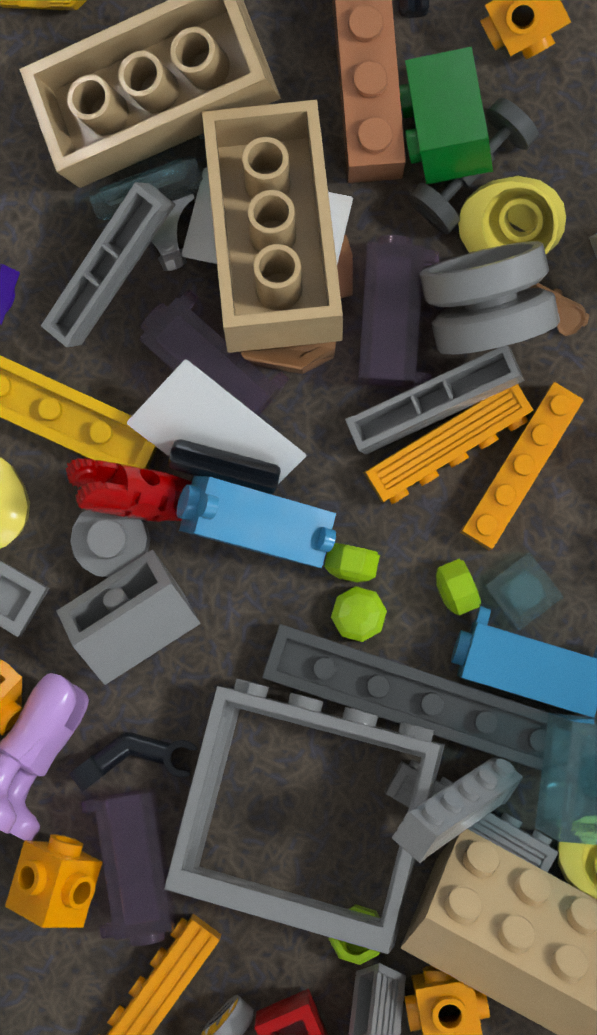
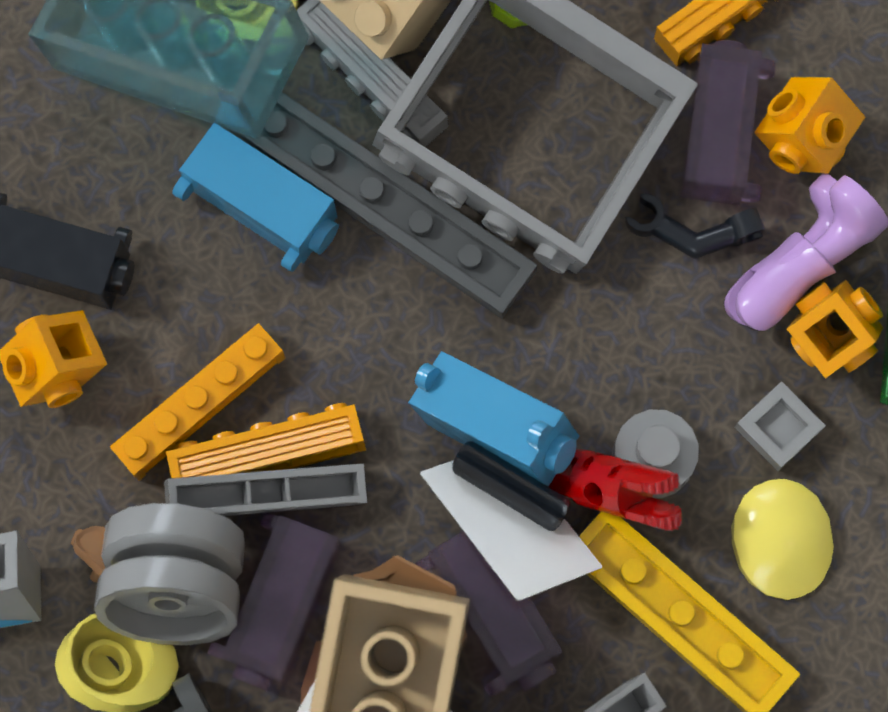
camera: 165 degrees left, 10 degrees down
(127, 617) = (659, 363): light grey brick -> none
(352, 563) = (405, 352): lime tile -> none
(358, 614) = (417, 303): lime tile -> none
(457, 587) = (307, 297): lime tile -> none
(457, 808) = (380, 67): light grey piece -> none
(523, 591) = (241, 276): clear light blue plate -> none

